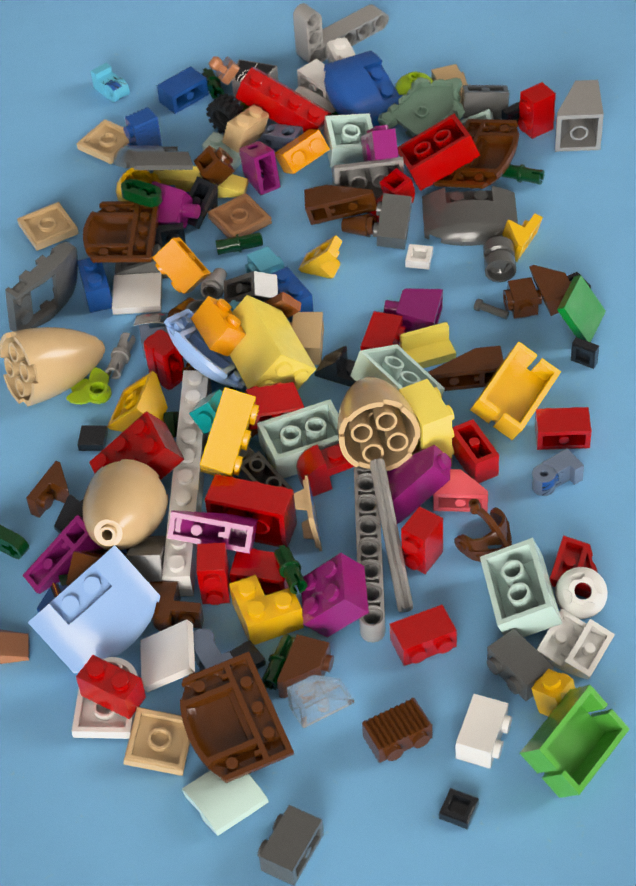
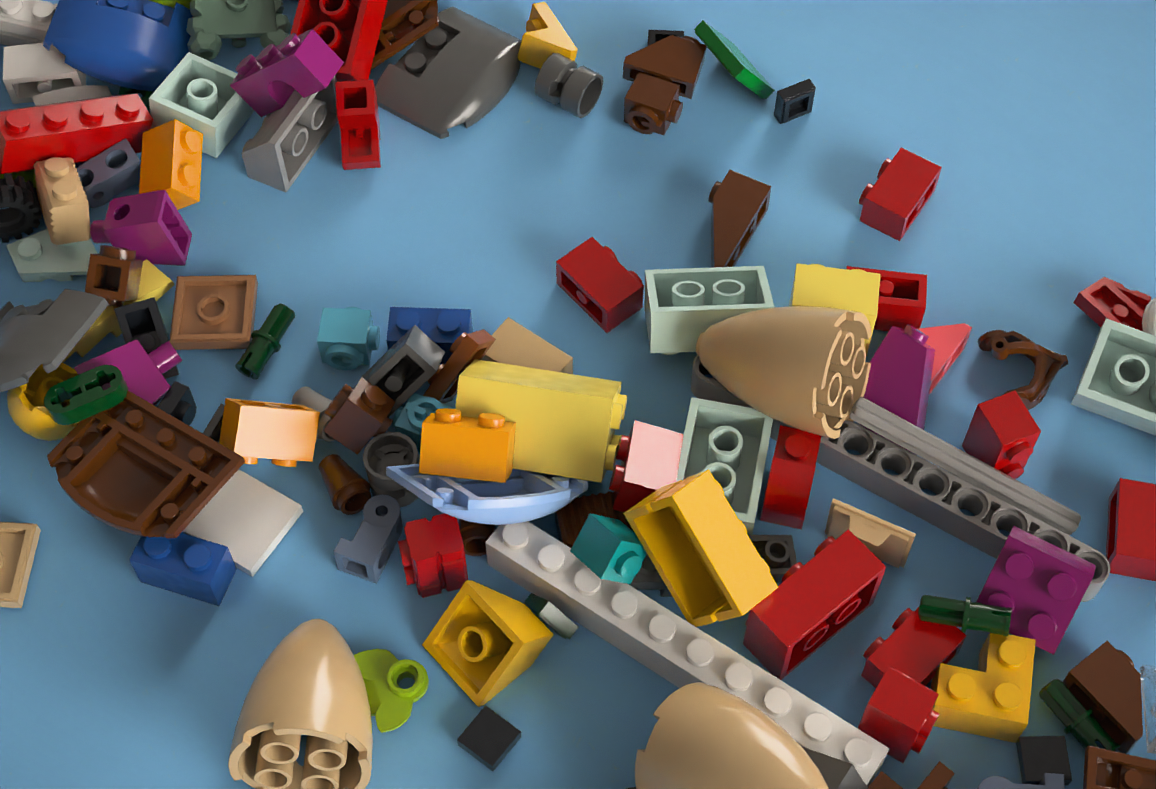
camera: 60 degrees left, 10 degrees up
(62, 268) = (160, 646): dark grey slope -> none
(120, 355) = (355, 611): light grey pin -> none
(143, 441) = (616, 690): red brick -> none
(150, 318) = (320, 530): sticker -> none
(204, 527) = (847, 663): magenta slope -> none
(214, 284) = (358, 415): none -> reddish brown brick
(322, 259) = (391, 262): yellow slope -> none
(336, 367) = (613, 355): black slope -> none
(337, 202) = (303, 188): reddish brown slope -> none
(359, 225) = (365, 187): reddish brown cone -> none
(393, 221) = (405, 146): dark grey brick -> none
(418, 307) = (581, 212): magenta torso -> none
(419, 256) = (481, 161): white plate -> none
(429, 345) = (655, 242): light yellow panel -> none
(480, 305) = (619, 152): dark grey piece -> none
(515, 391) = (827, 198): yellow piece -> none
(556, 472) = (962, 236): sand blue leg -> none

